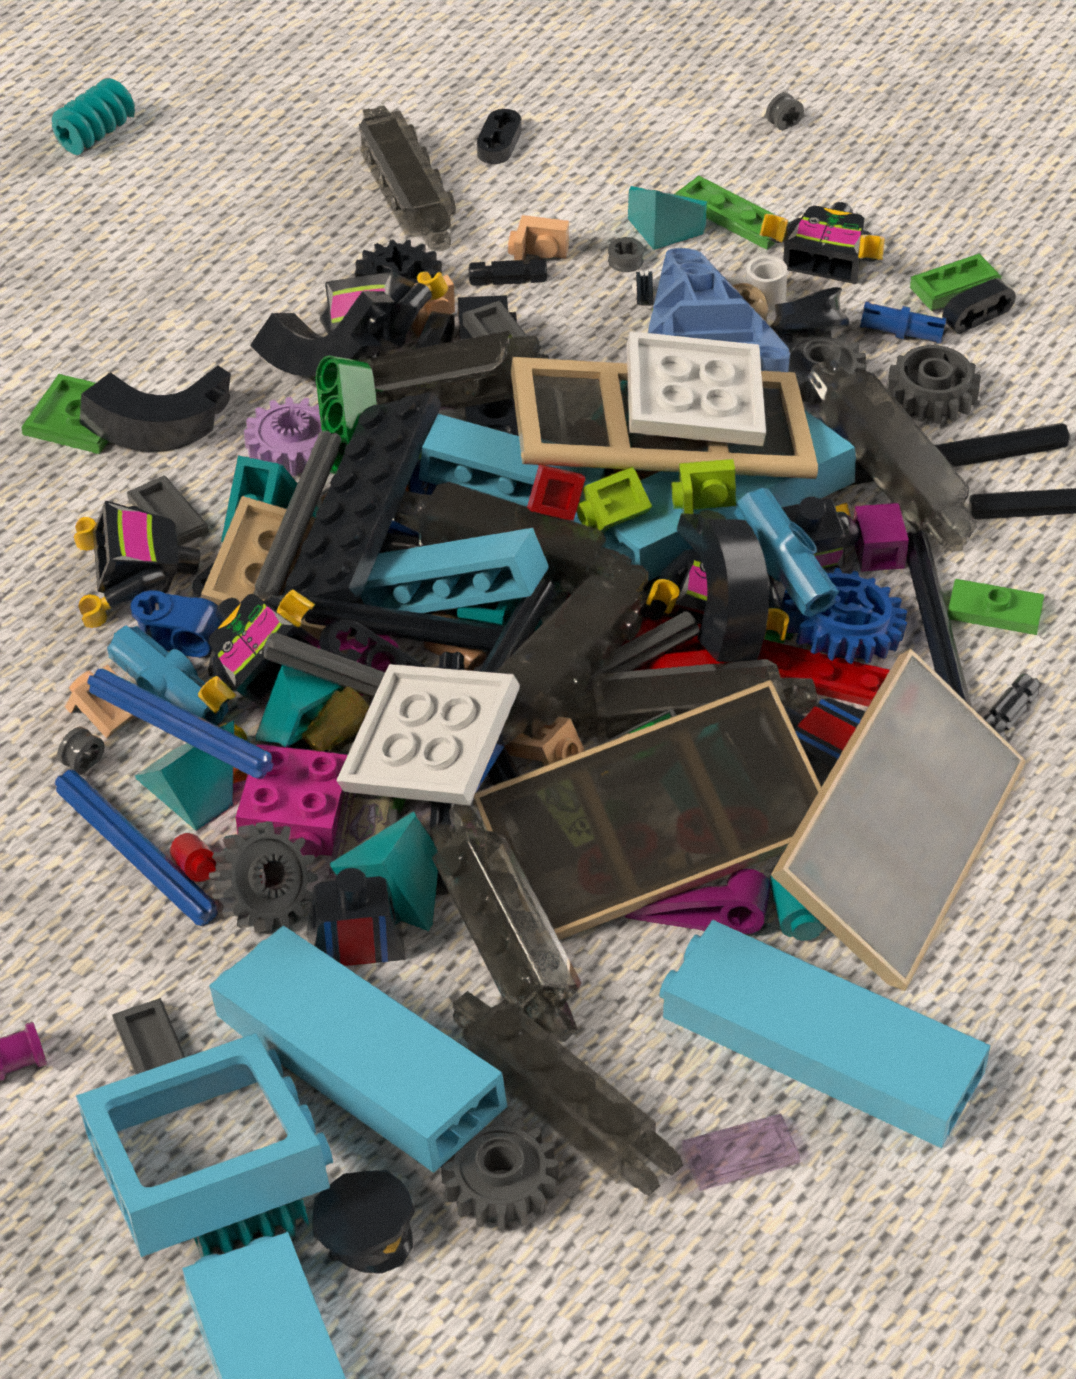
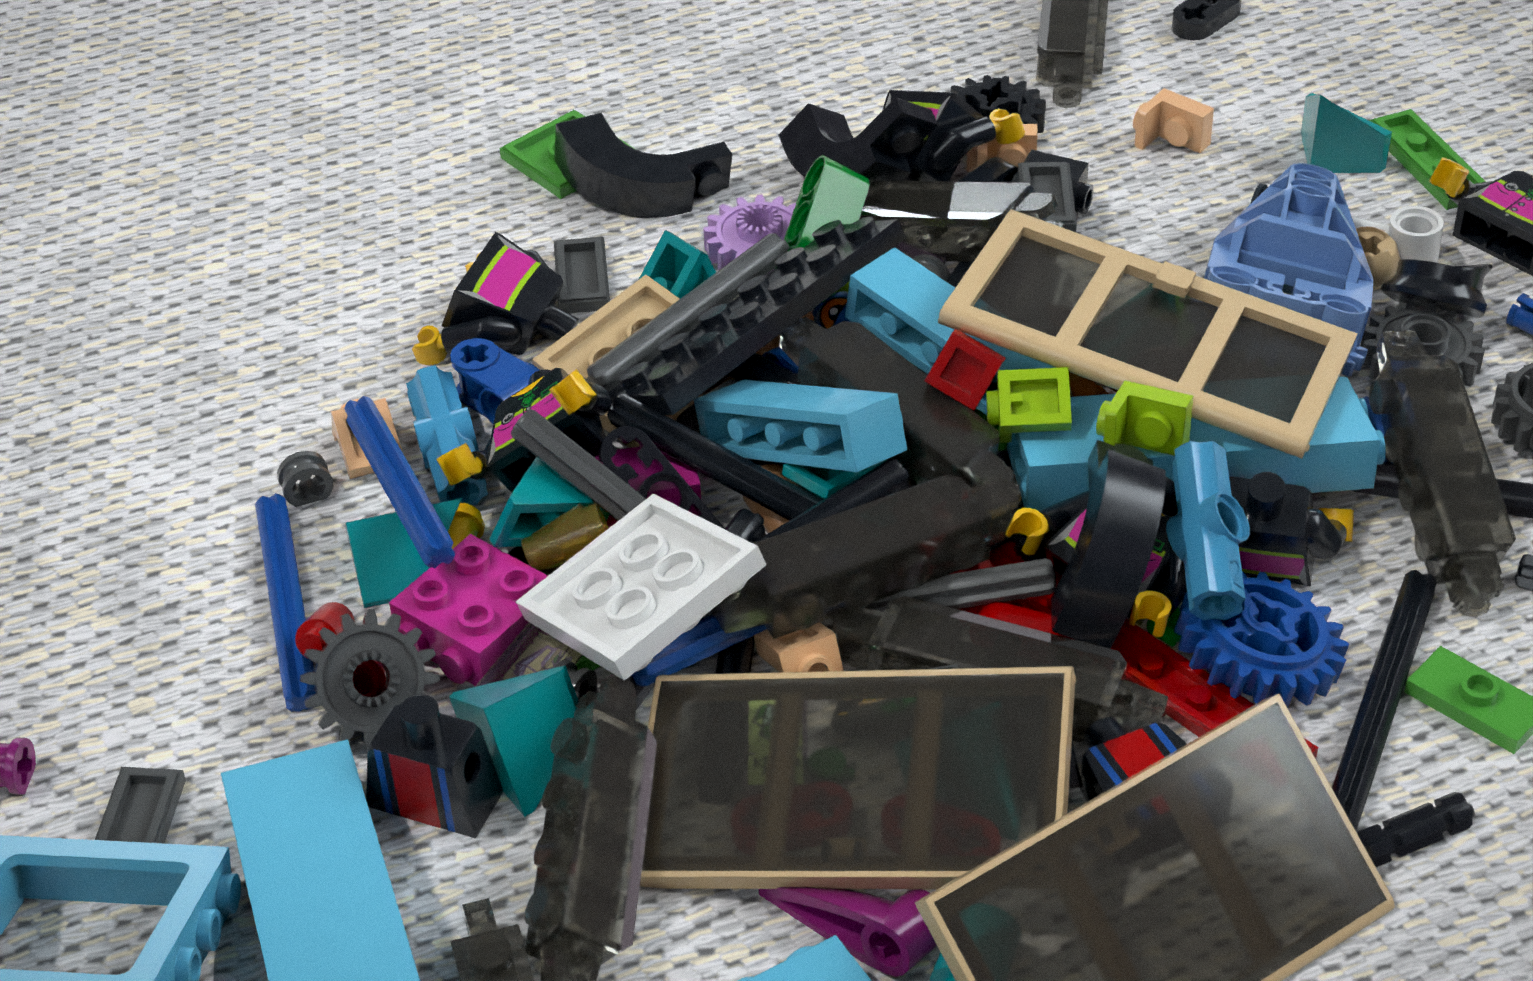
camera: 30 degrees right, 5 degrees down
(507, 272) = (1120, 147): black axle -> none
(625, 261) = (1267, 164): dark grey bush -> none
(695, 389) = (1198, 304): white plate -> none
(882, 537) = (1369, 563): magenta brick -> none

